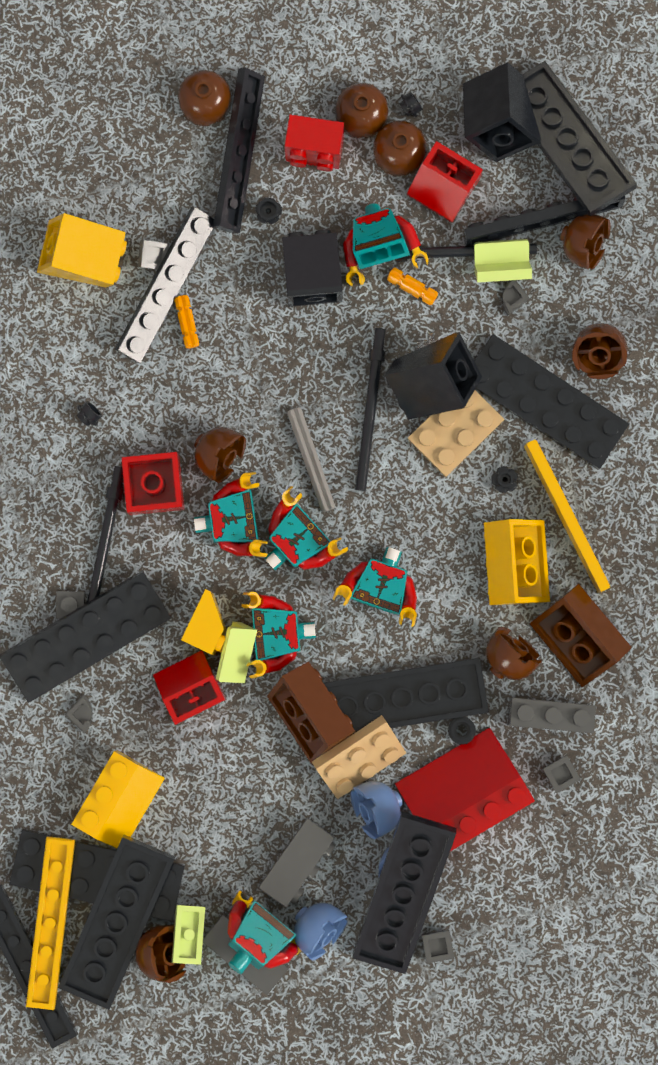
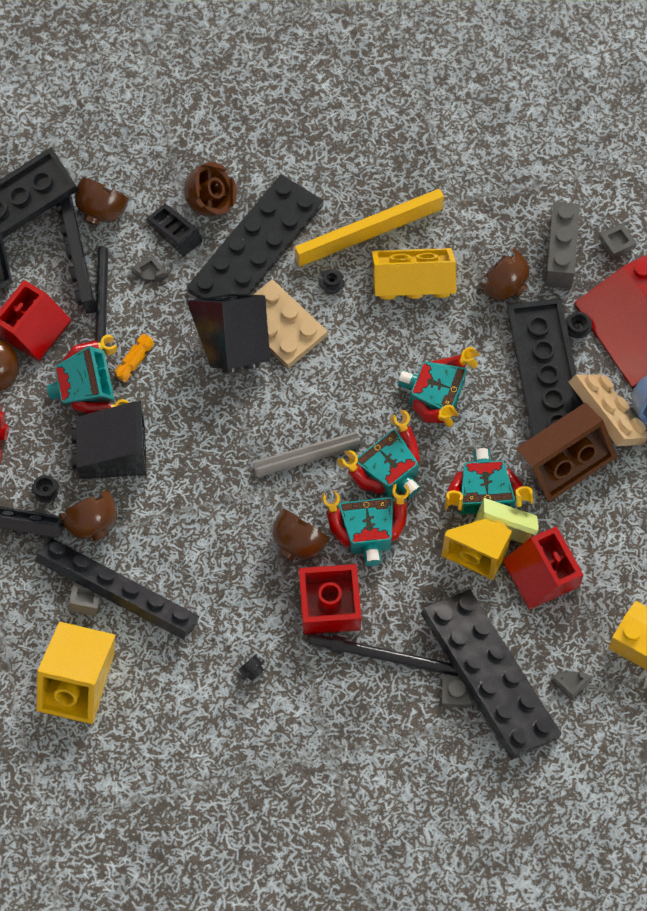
camera: 90 degrees left, 20 degrees down
(186, 321) = (157, 570): light orange axle -> none
(234, 255) = (91, 517): none -> reddish brown cylinder
(377, 357) = (204, 391): black bar -> none
(502, 260) = (115, 275): yellowish green panel -> none
(549, 330) = (184, 241): none -> black slope
(580, 635) = (485, 219): reddish brown slope -> none

